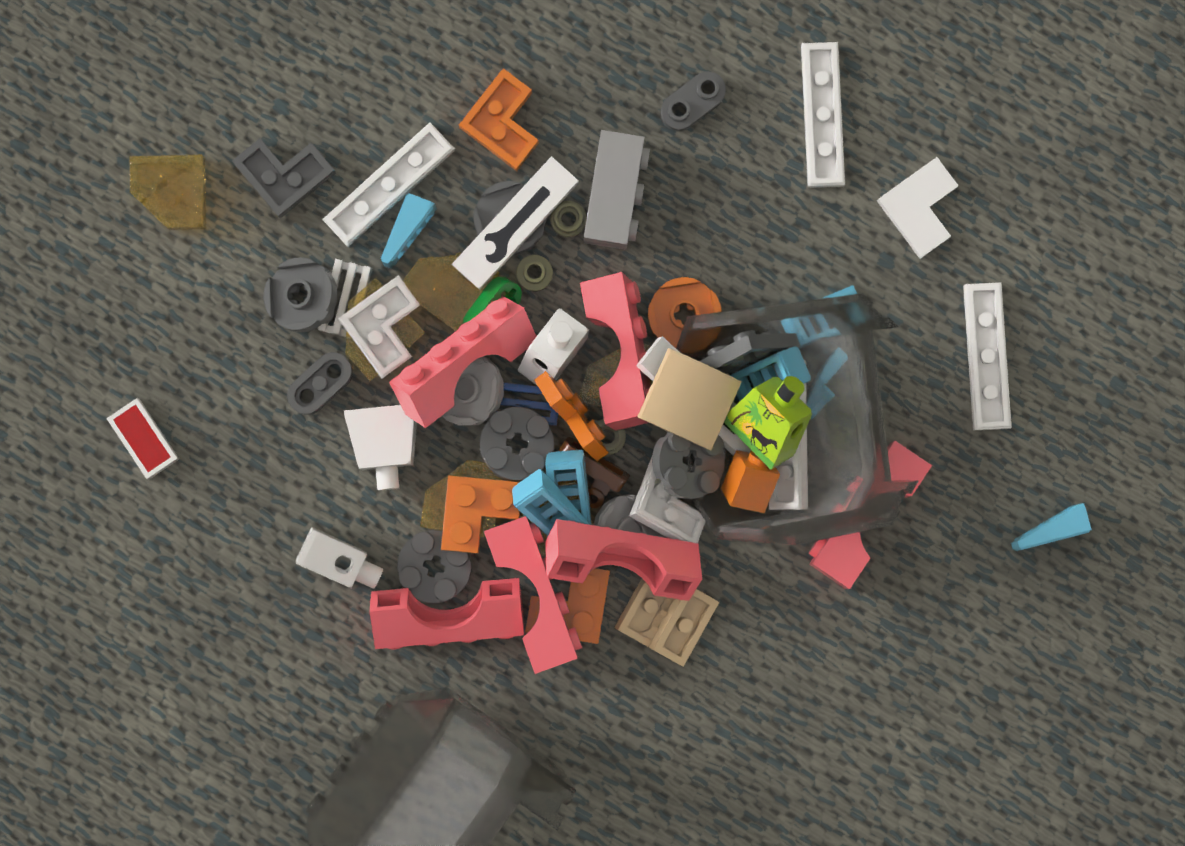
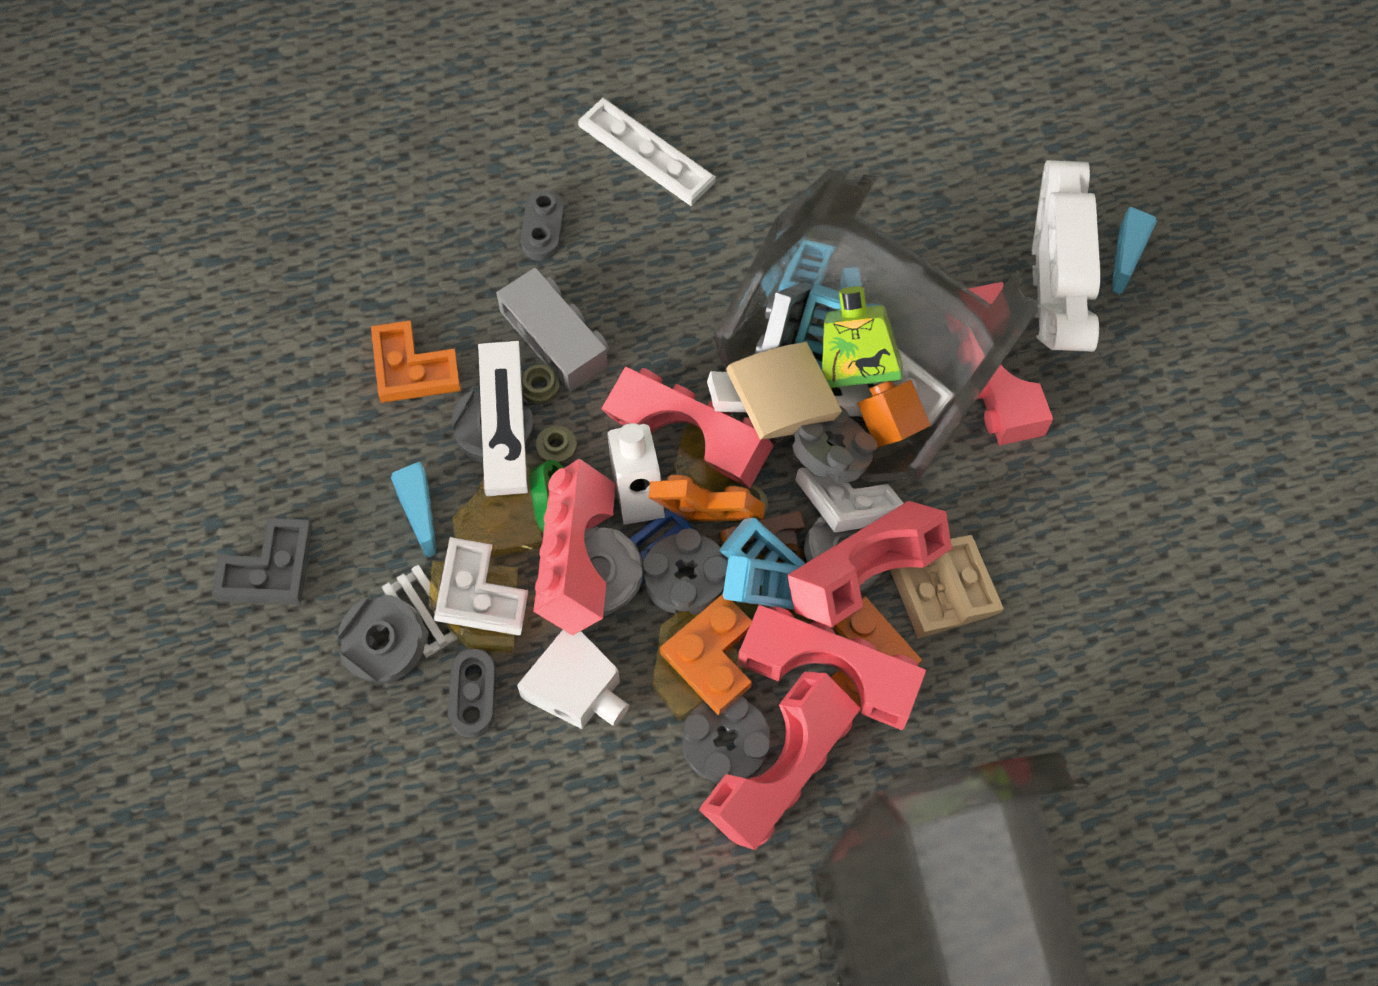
camera: 50 degrees left, 20 degrees down
(143, 438) = (361, 897): red tile -> none
(171, 188) = (178, 669): clear yellow plate -> none
(321, 552) = (639, 812): white torso -> none
(388, 184) = (366, 496): white tile -> none
(667, 301) = (680, 359): orange plate -> none
(910, 206) = (779, 152): white tile -> none
(981, 500) = (1066, 258): none -> white piece
(987, 356) = (946, 192): white tile -> none

